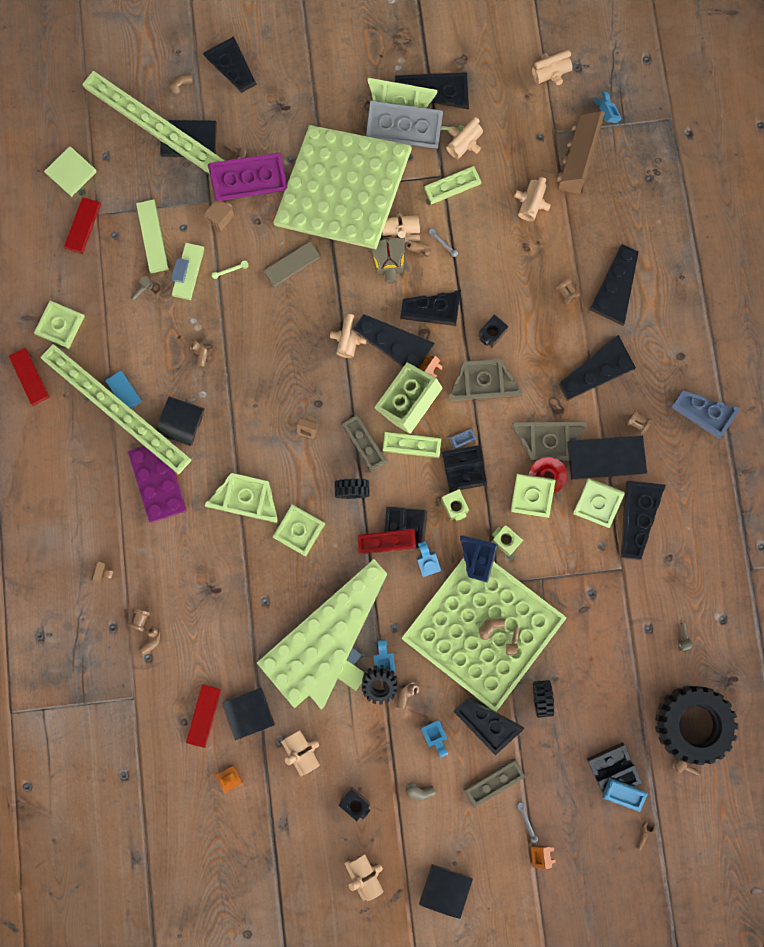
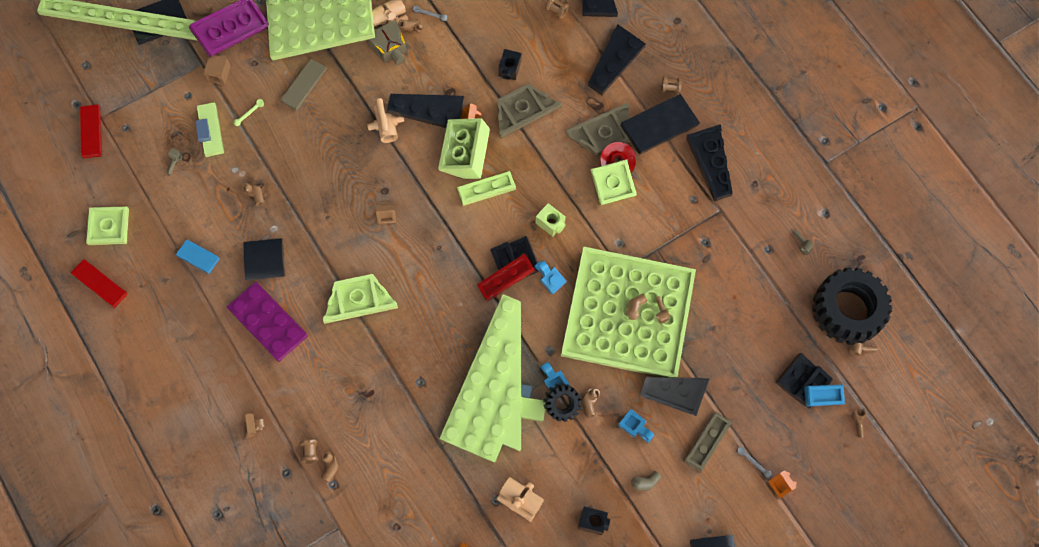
camera: 35 degrees left, 10 degrees down
(70, 171) = (58, 90): yellowish green tile -> none
(116, 409) = (198, 273): yellowish green plate -> none
(152, 236) = (162, 113): yellowish green tile -> none
(203, 716) = (412, 511): red tile -> none
(248, 714) = (454, 488): black slope -> none
(298, 530) = (421, 305): yellowish green tile -> none
(352, 488) = (452, 245): black tyre -> none
(364, 443) = (443, 205): dark tan tile -> none
(432, 309) = (451, 68): black wing -> none
(462, 439) = (528, 164): sand blue piece -> none
(464, 468) = (542, 187): black slope -> none
(478, 557) = (594, 252): dark blue wing -> none
(515, 540) = (615, 223): yellowish green brick -> none
(543, 698) = (712, 345): black tyre -> none
(598, 502) = (672, 163): yellowish green tile -> none
(709, 415) = (726, 55): sand blue wing -> none

